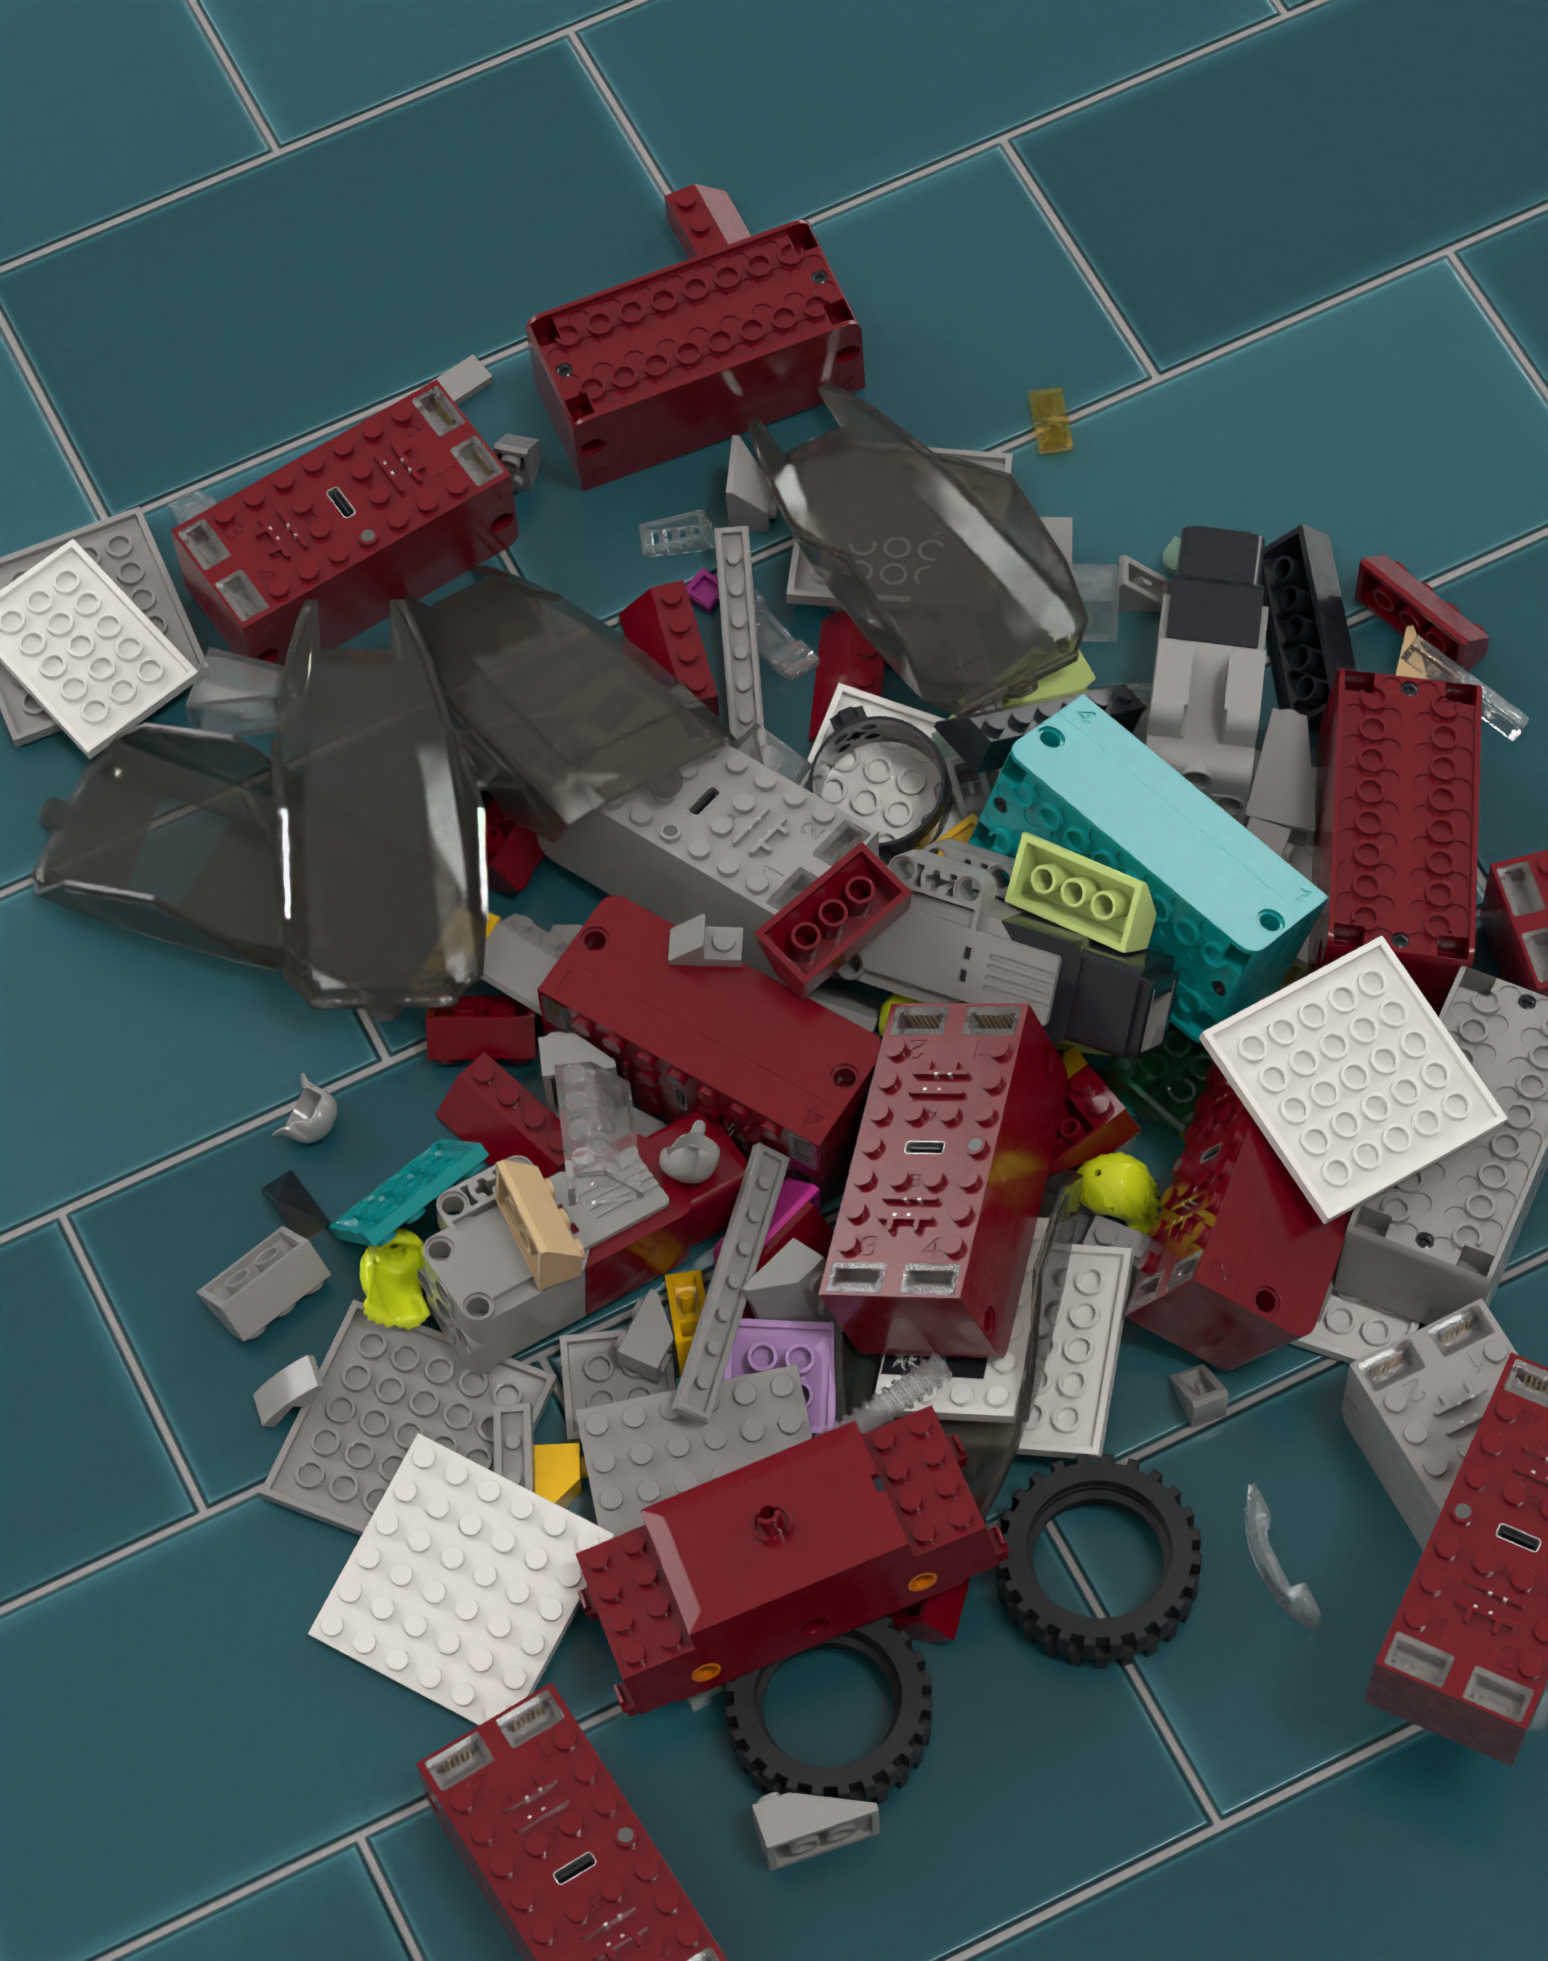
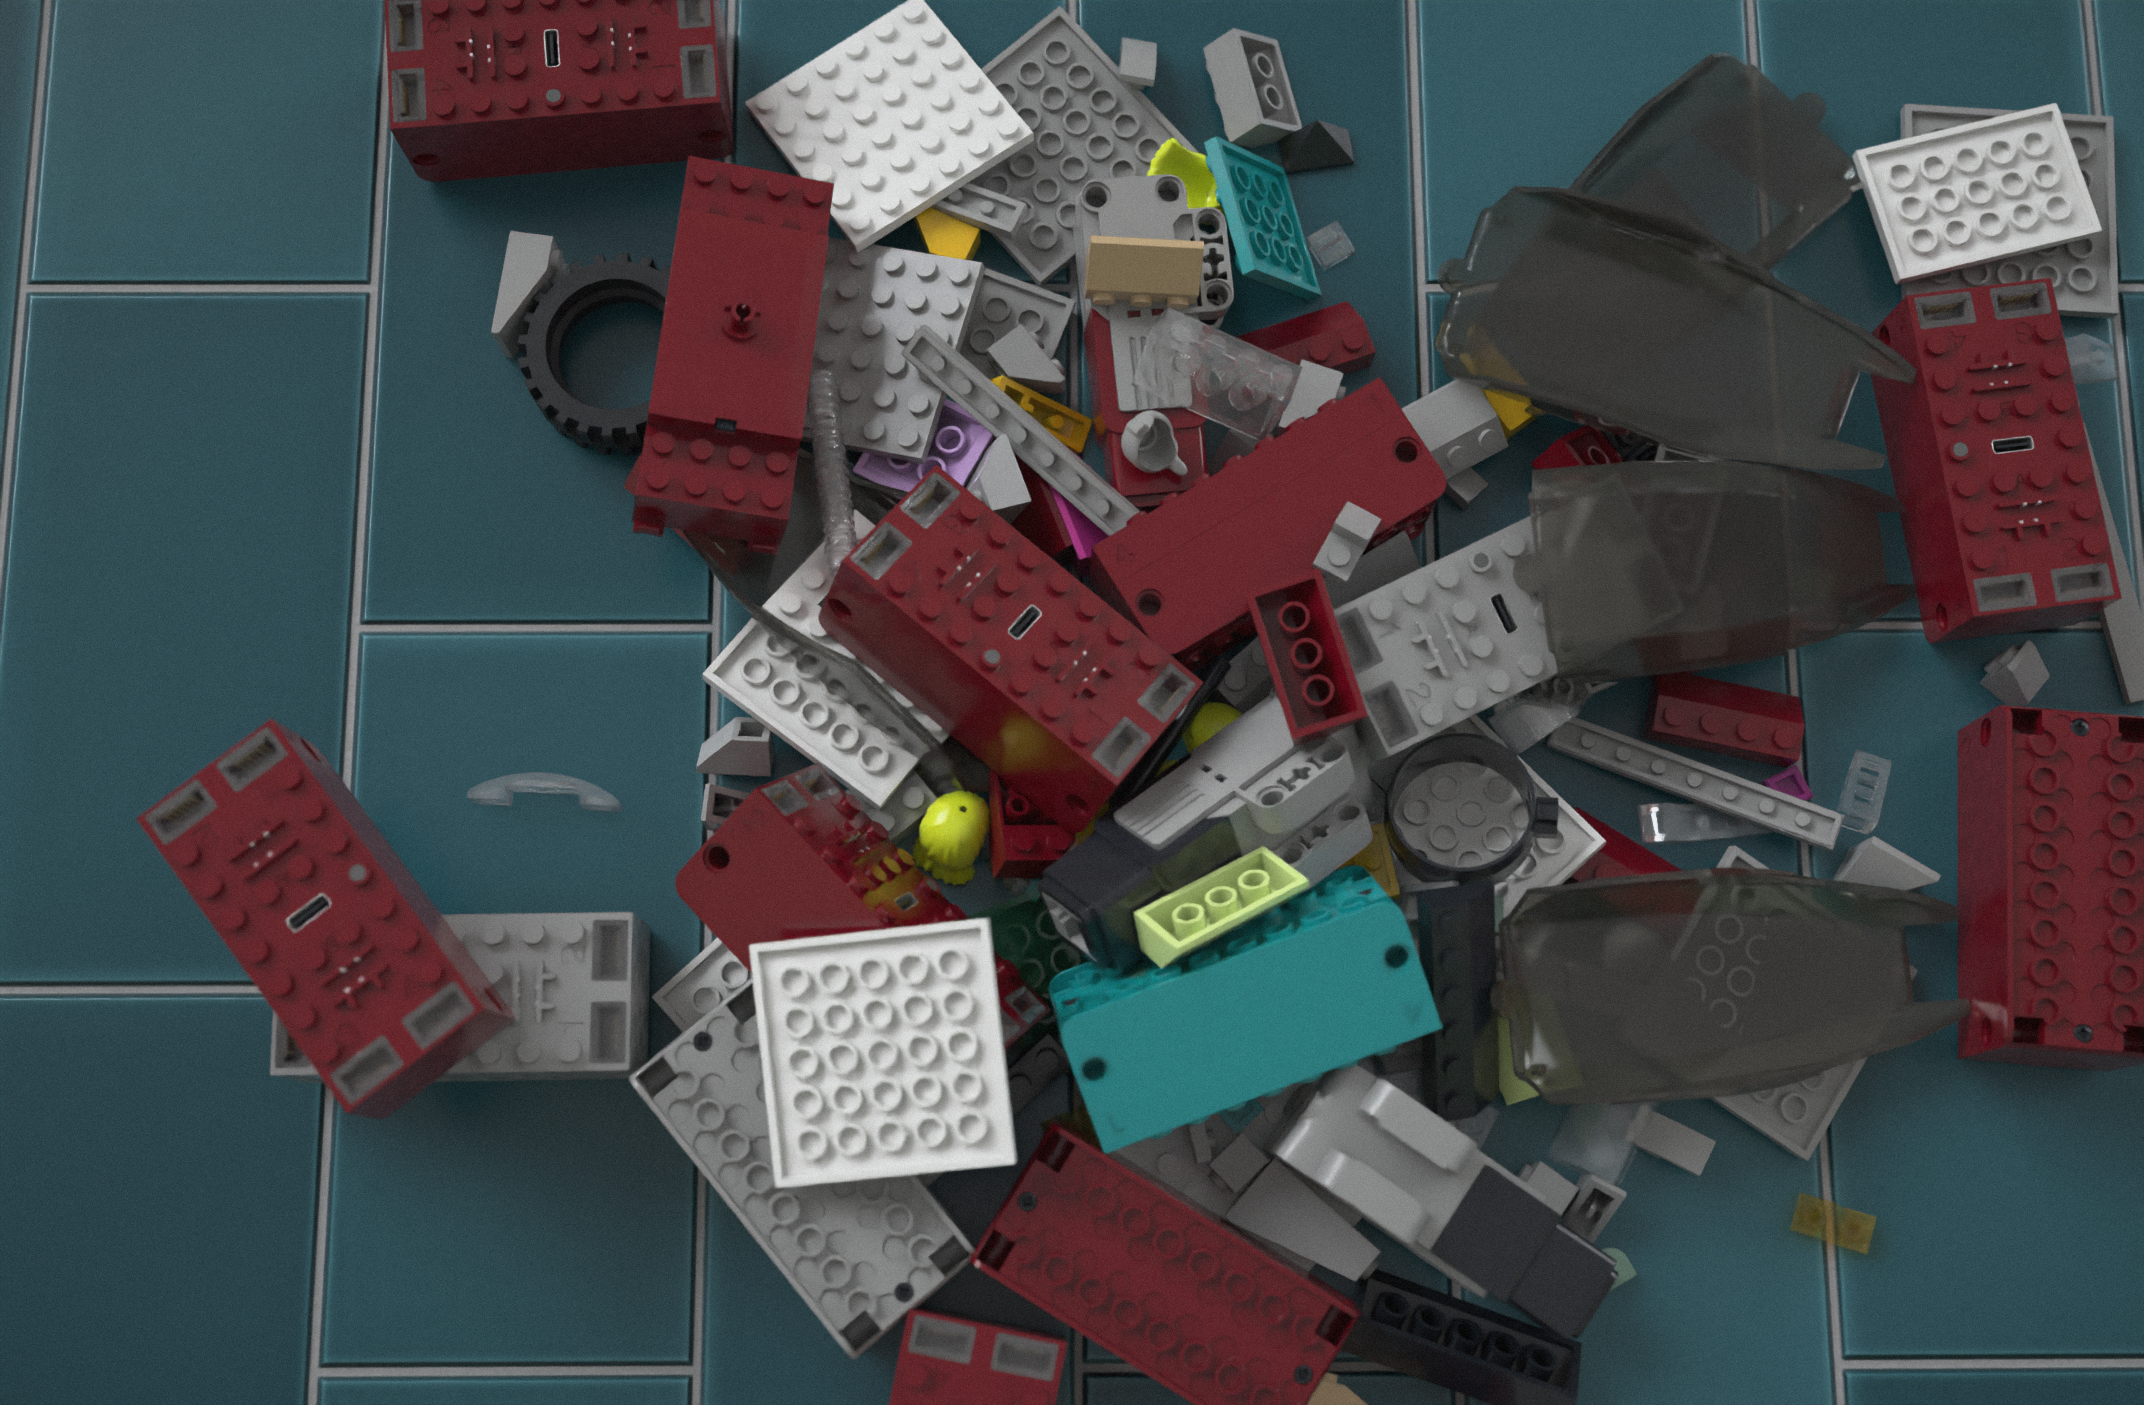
camera: 110 degrees right, 15 degrees up
(235, 695) = (1866, 288): clear slope -> none
(311, 1116) = (1391, 193): light grey hair -> none
(387, 1151) = (1330, 245): none -> clear tile
(480, 1025) = (1409, 358): dark red slope -> none
(1110, 1486) = (579, 575): black tyre -> none
(1143, 1413) = (738, 749): none -> light grey slope
(1144, 624) = (1550, 1184): none -> light grey brick

